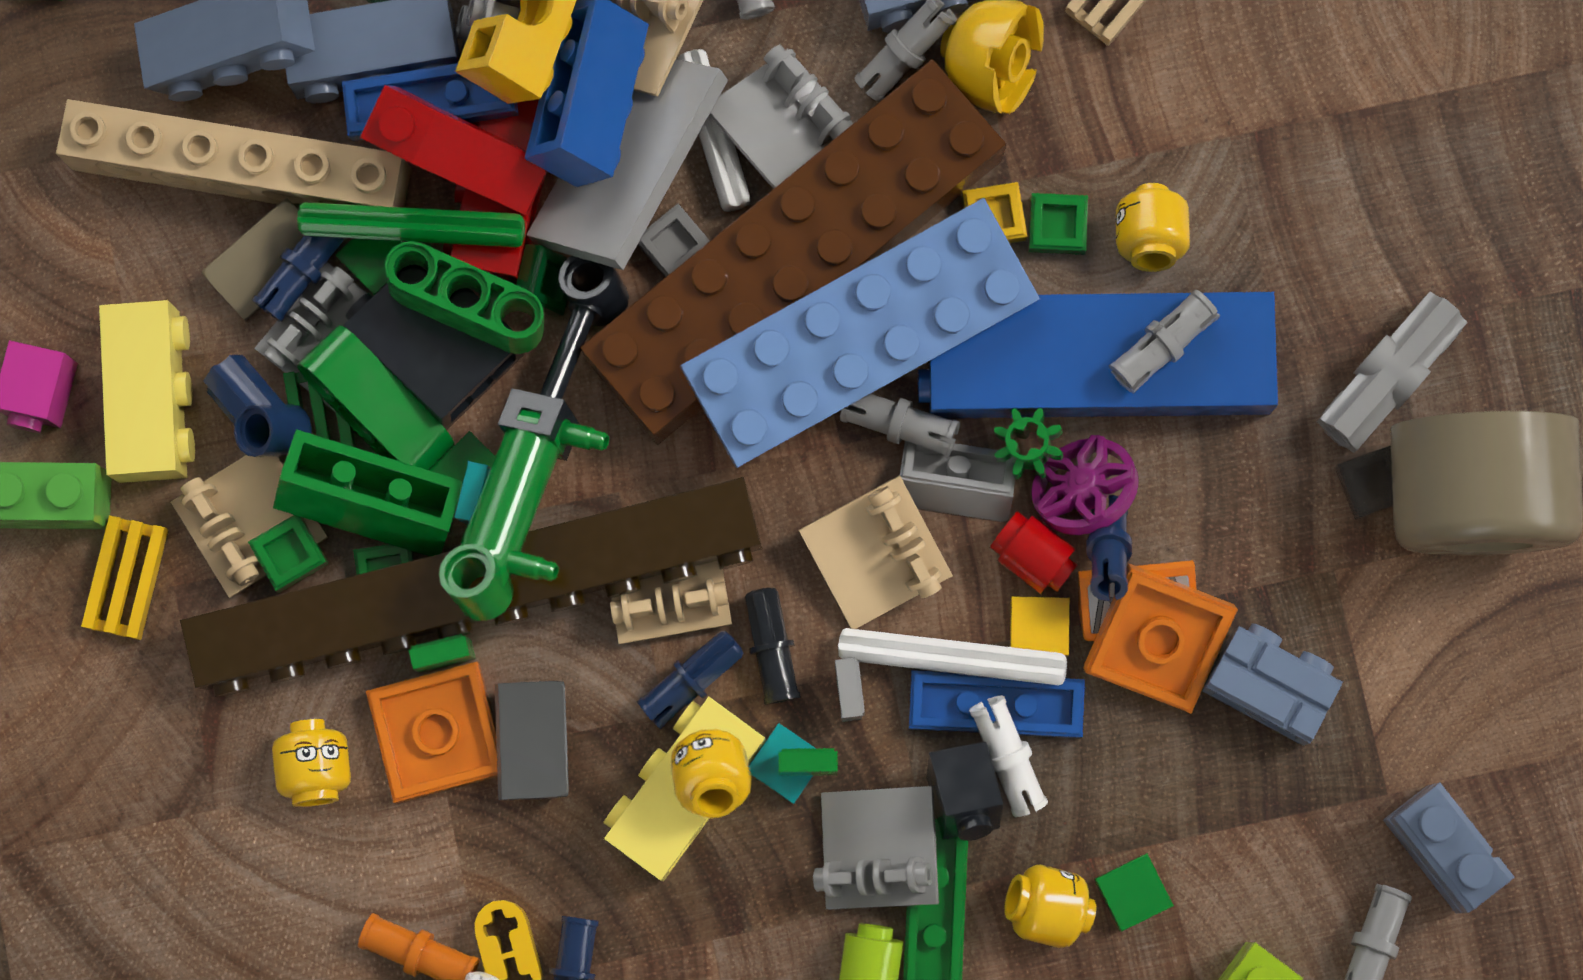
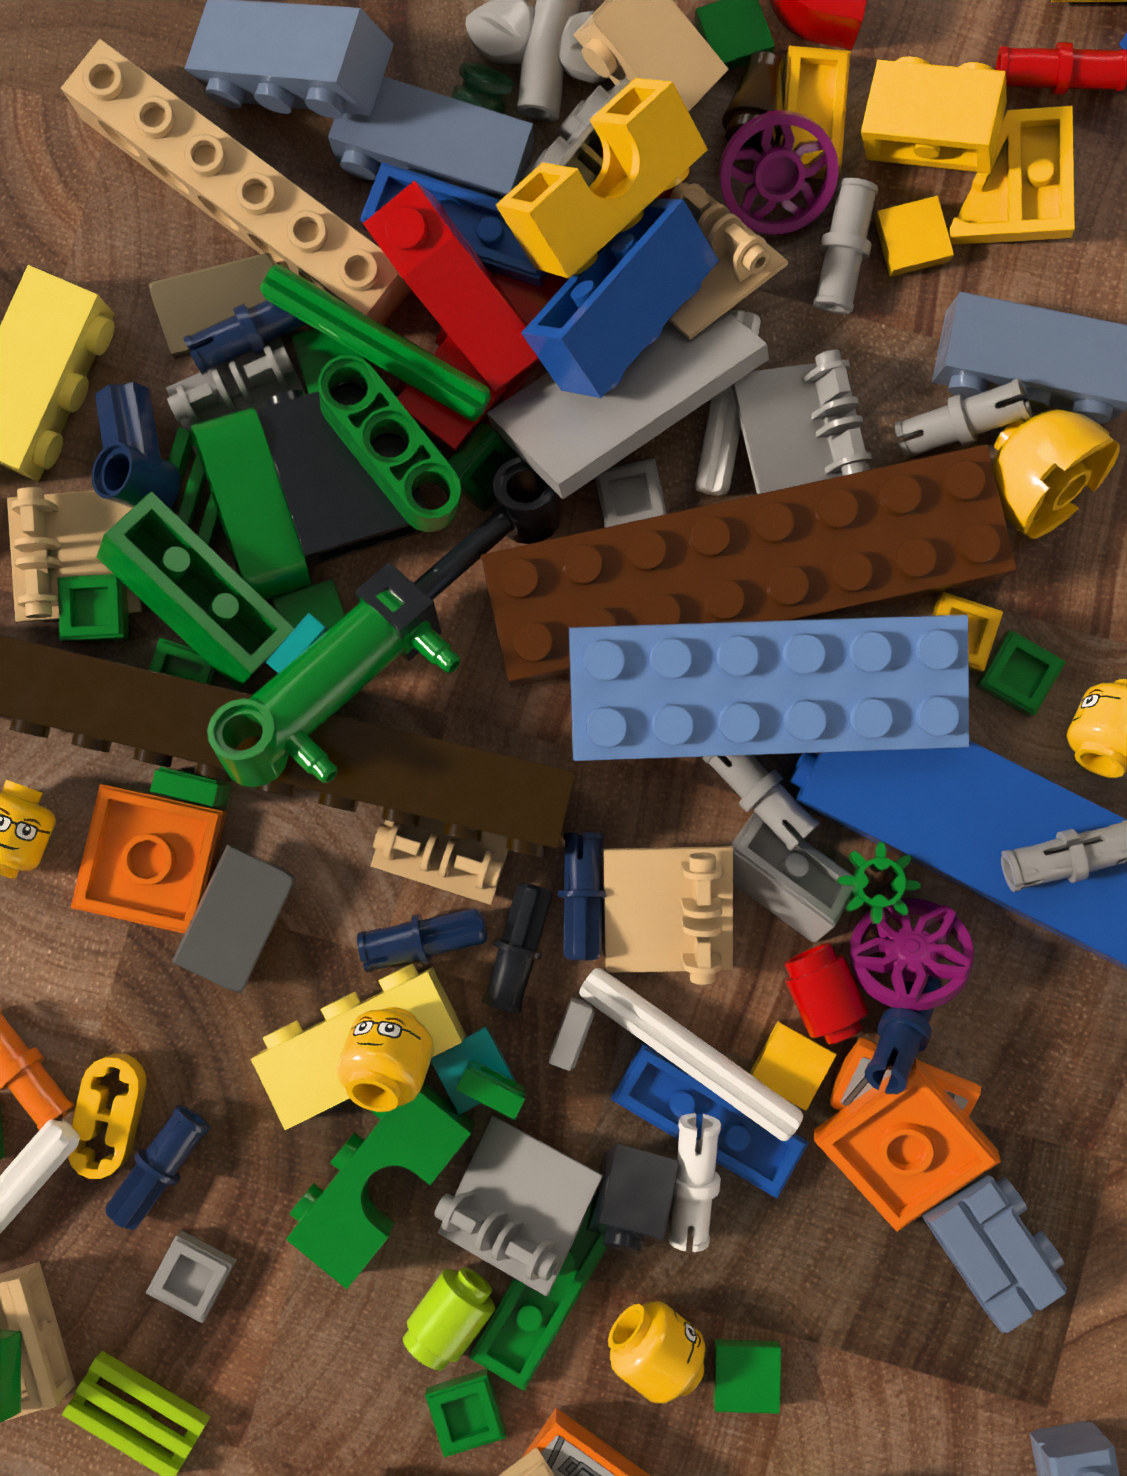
camera: 25 degrees right, 5 degrees up
(740, 937) = (341, 1224): none -> green arch
(801, 577) = (582, 895): none -> dark blue axle

